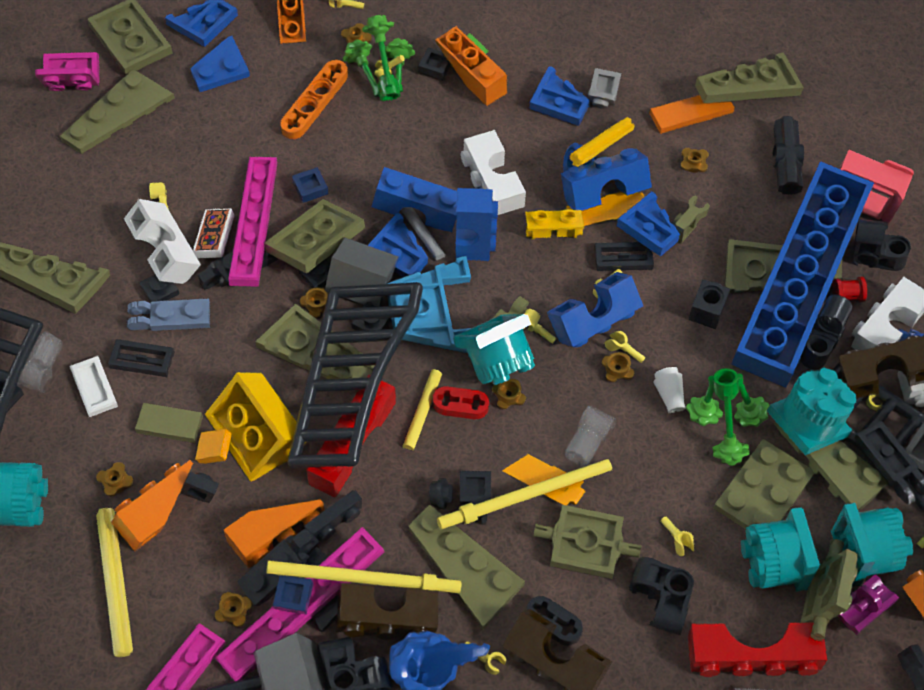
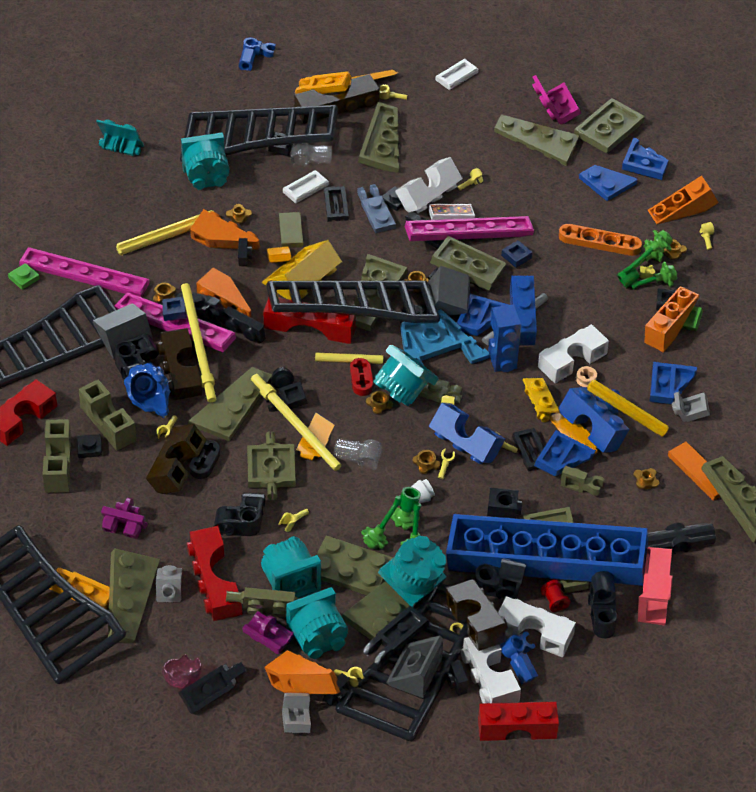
camera: 75 degrees right, 10 degrees down
(534, 175) = (581, 380): none -> light nougat bush

